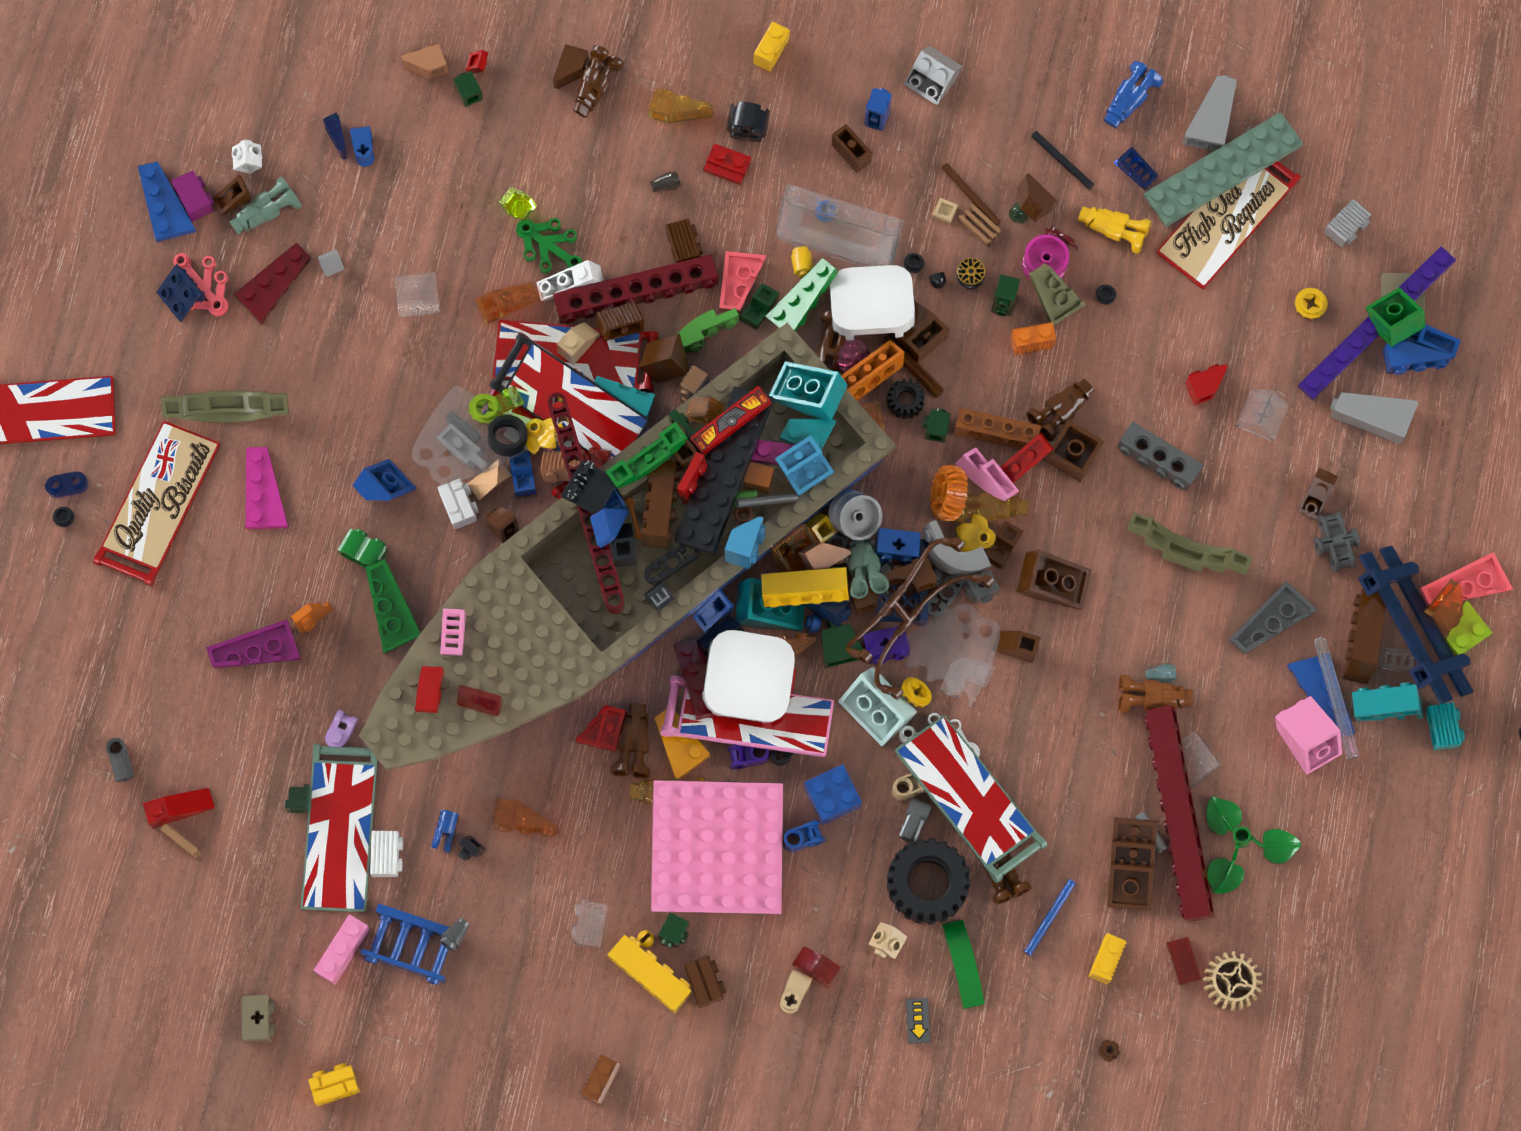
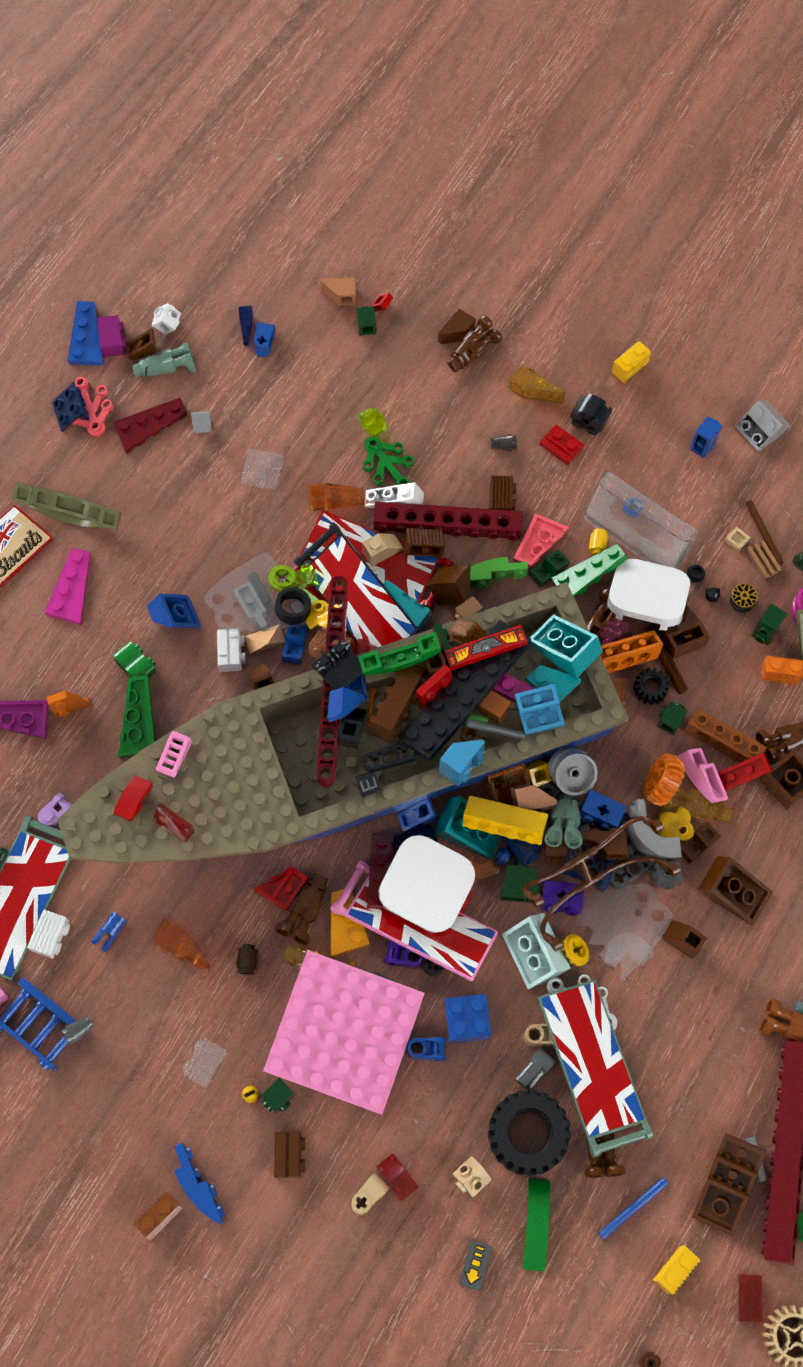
camera: 20 degrees right, 5 degrees down
(471, 848) = (125, 955): black tile -> none
(594, 811) = (247, 959): none -> dark brown brick
(633, 1046) = (199, 1193): none -> blue slope
(649, 973) = (241, 1130): yellow brick -> none
(851, 148) = (672, 462): reddish brown brick -> none

